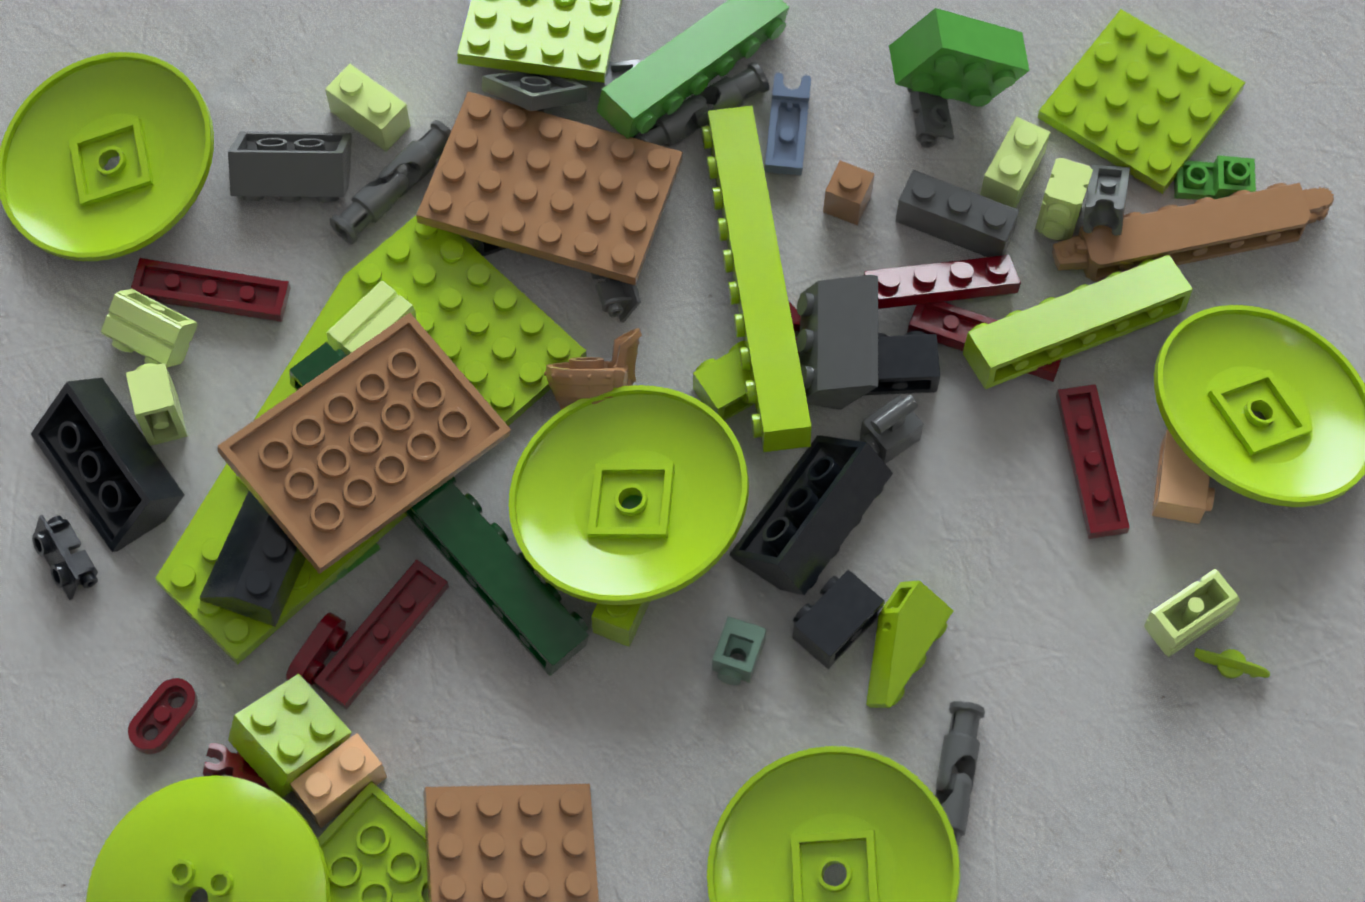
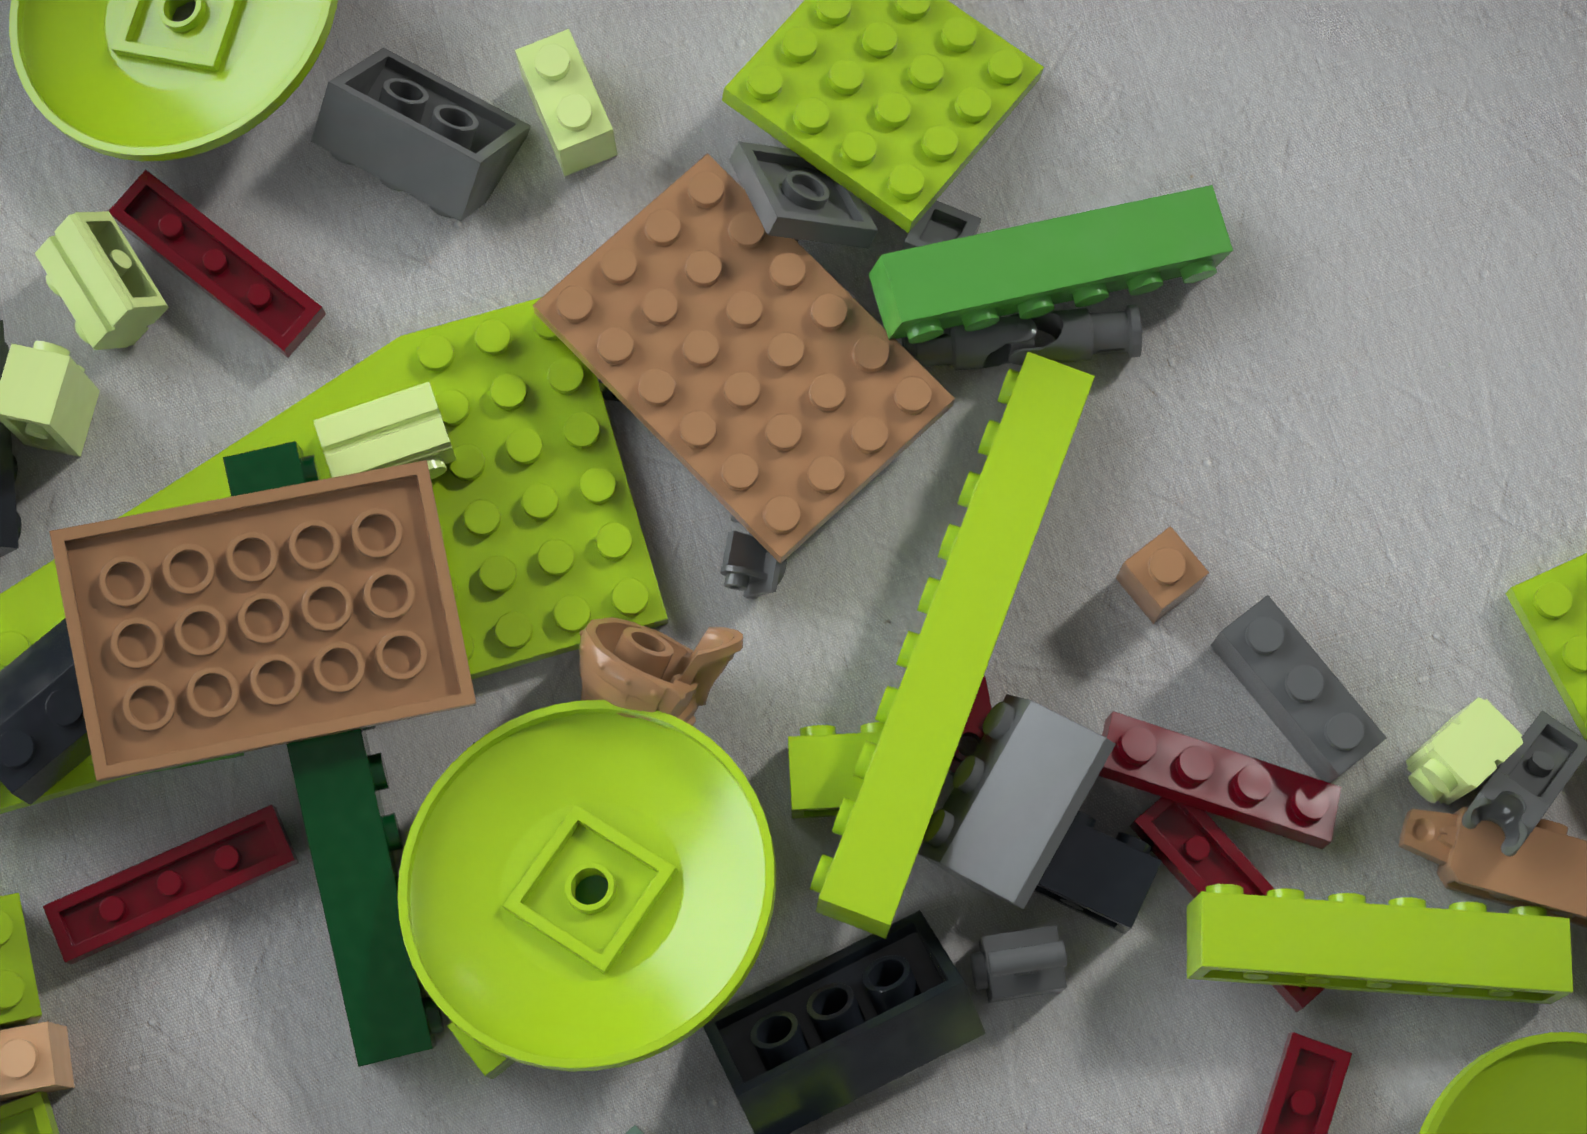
camera: 30 degrees right, 10 degrees up
(325, 638) = (93, 852): dark red plate -> none
(381, 194) = (523, 237): dark grey piece -> none
(787, 127) = (1133, 428): sand blue plate -> none
(933, 119) = (1358, 502): dark grey hinge -> none
(958, 57) = (1427, 462): bright green brick -> none
(1015, 163) = (1426, 655): yellowish green brick -> none

